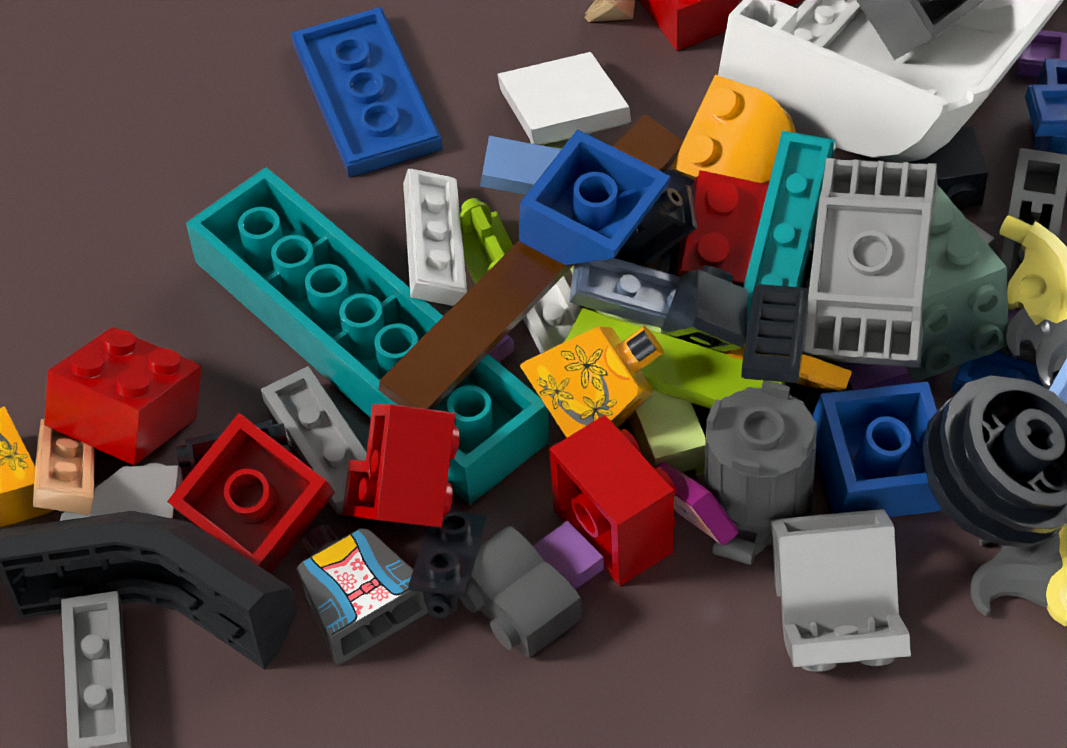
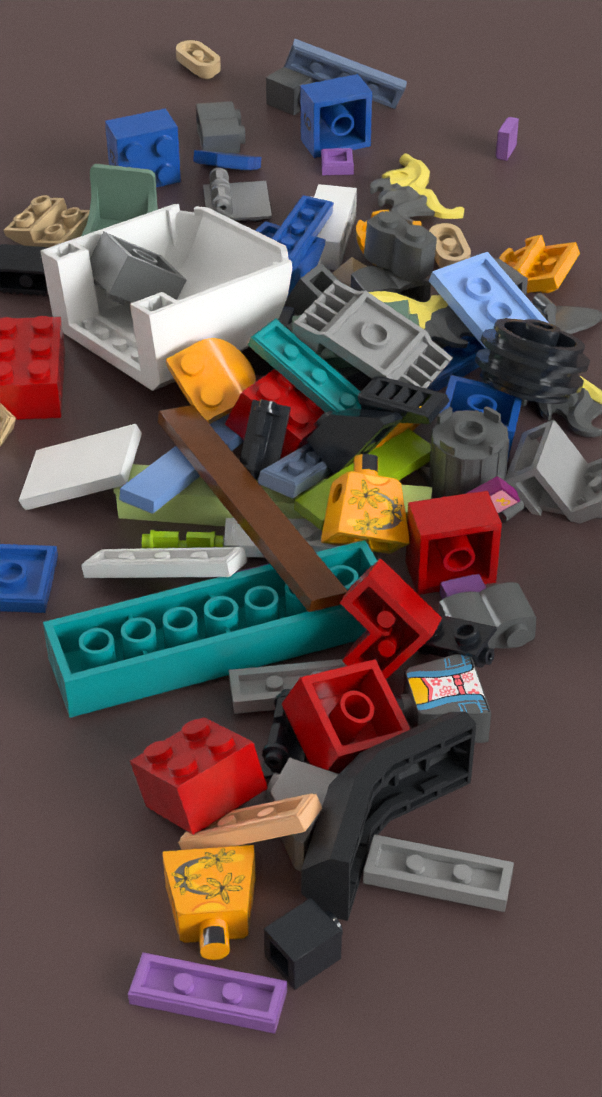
camera: 70 degrees left, 10 degrees down
(588, 201) = (245, 440): blue slope -> none

